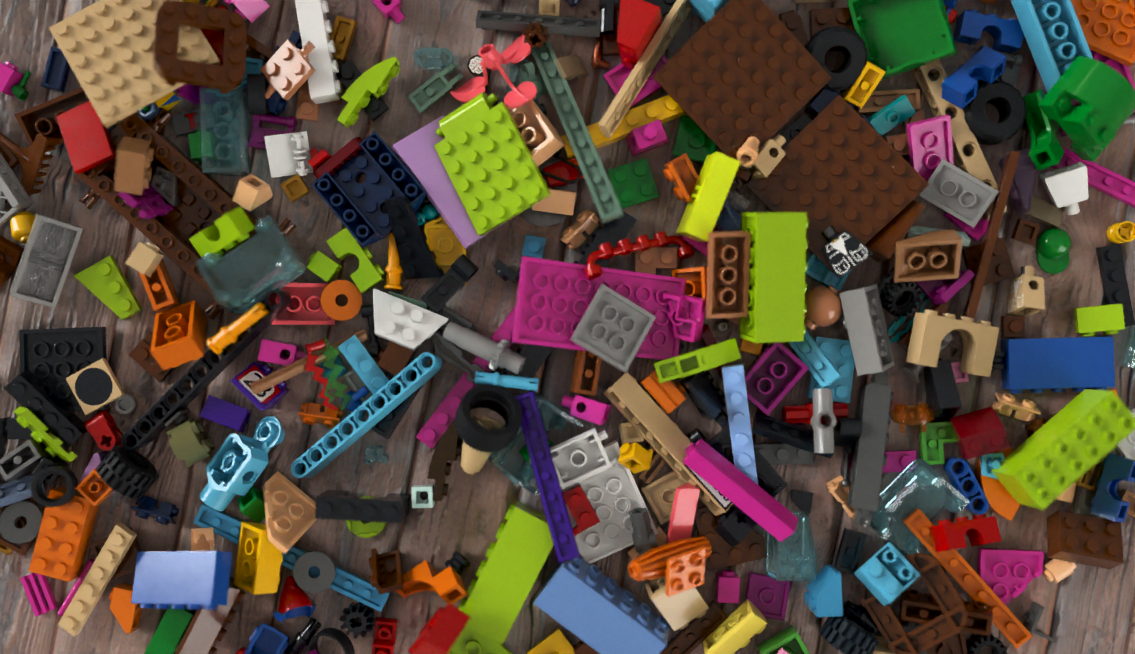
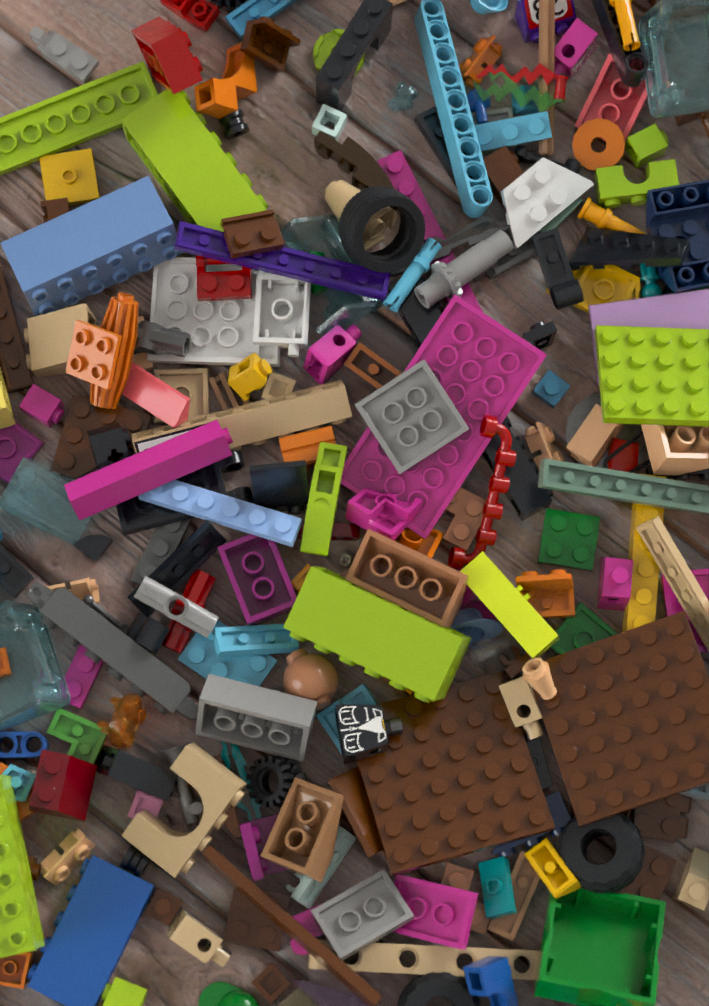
camera: 115 degrees right, 10 degrees down
(540, 507) = (252, 234): none -> reddish brown plate

